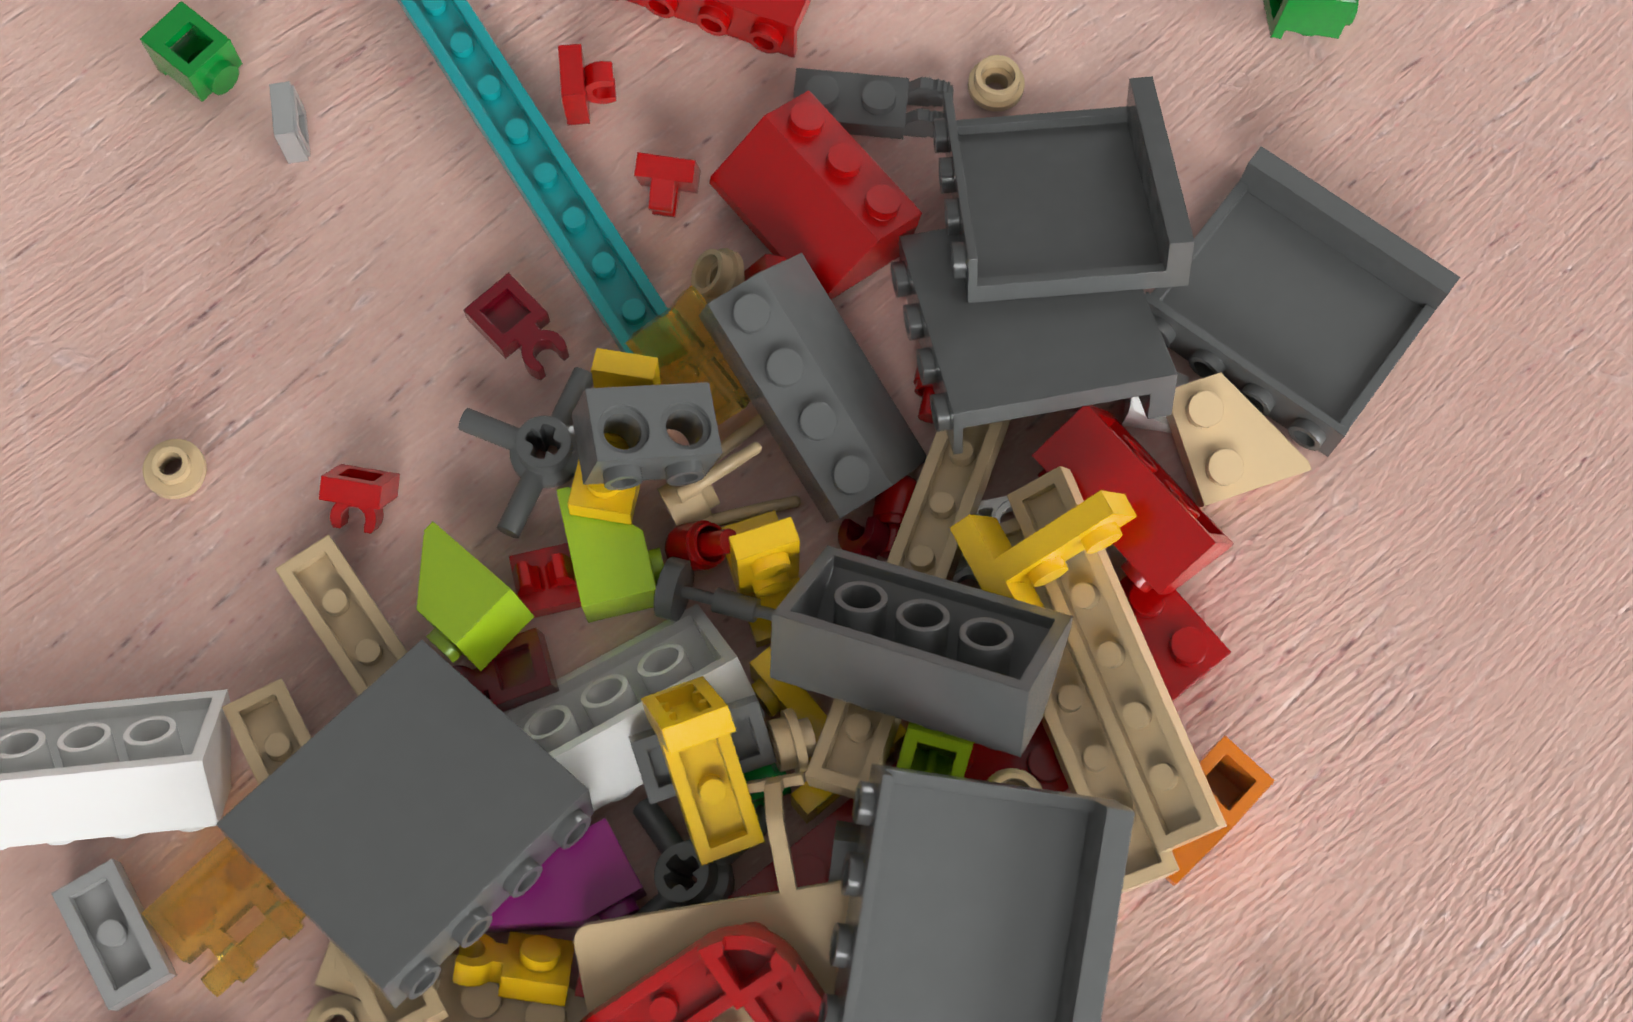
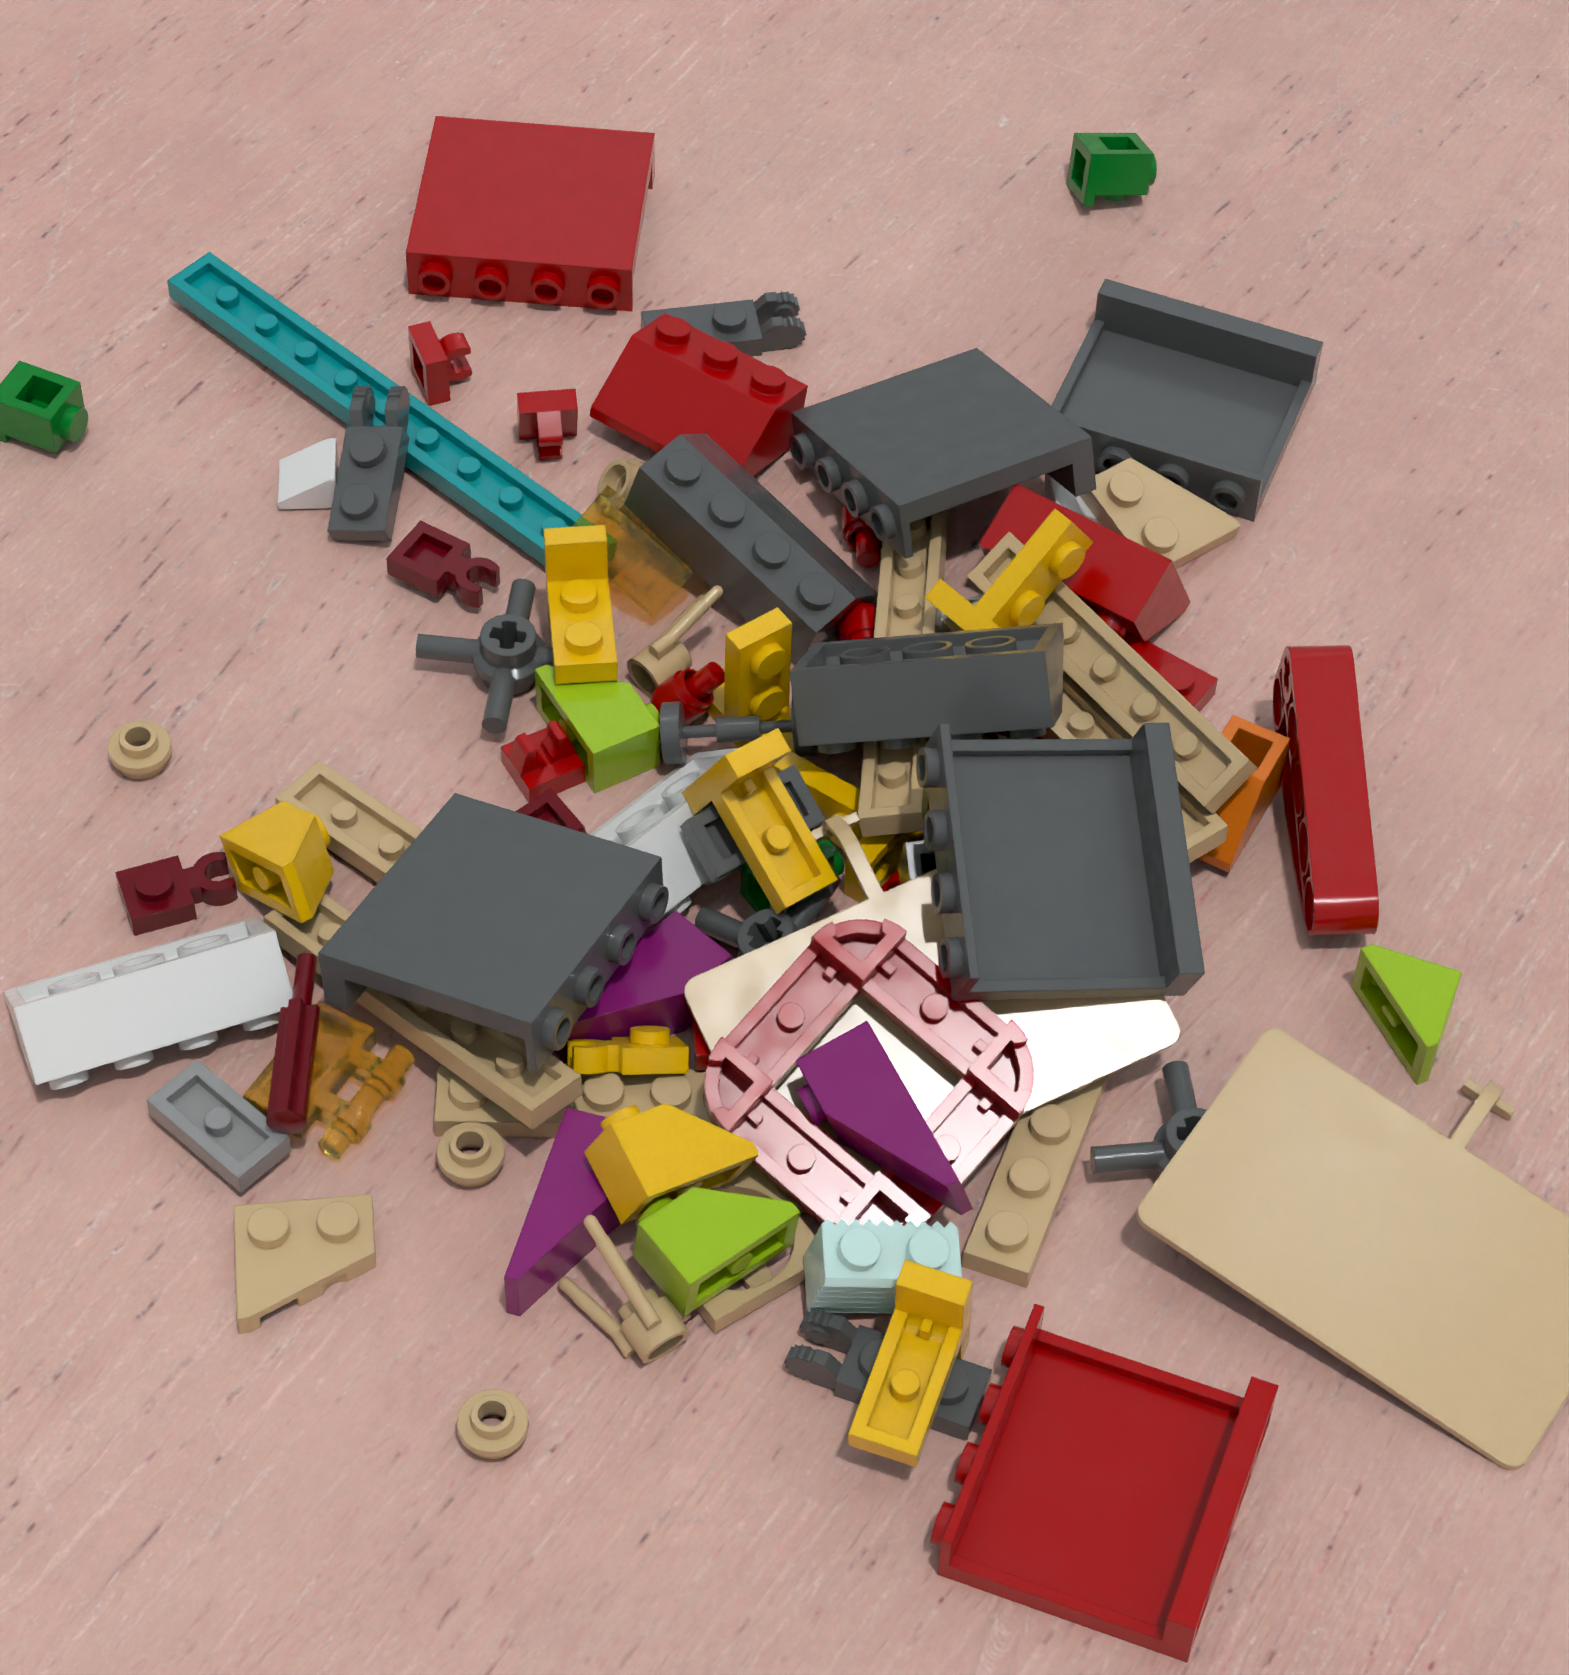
camera: 15 degrees left, 20 degrees down
(151, 639) = (166, 894): none -> dark red plate
(194, 888) = (295, 1053): none -> dark red axle
(255, 653) = (281, 859): none -> yellow slope
(289, 122) = (156, 446): light grey tile -> none
(358, 488) = (335, 721): red tile -> none
(427, 189) = (309, 477): none -> white slope
(465, 602) = (482, 764): lime slope -> none
(481, 196) = (370, 468): none -> dark grey hinge
(642, 419) = (614, 583): dark grey brick -> none
(791, 741) = (835, 797): tan plate -> none
(996, 70) = (837, 288): tan plate -> none
(1064, 200) = (940, 347): dark grey panel -> none
(1295, 841) = (1326, 790): none -> red beam

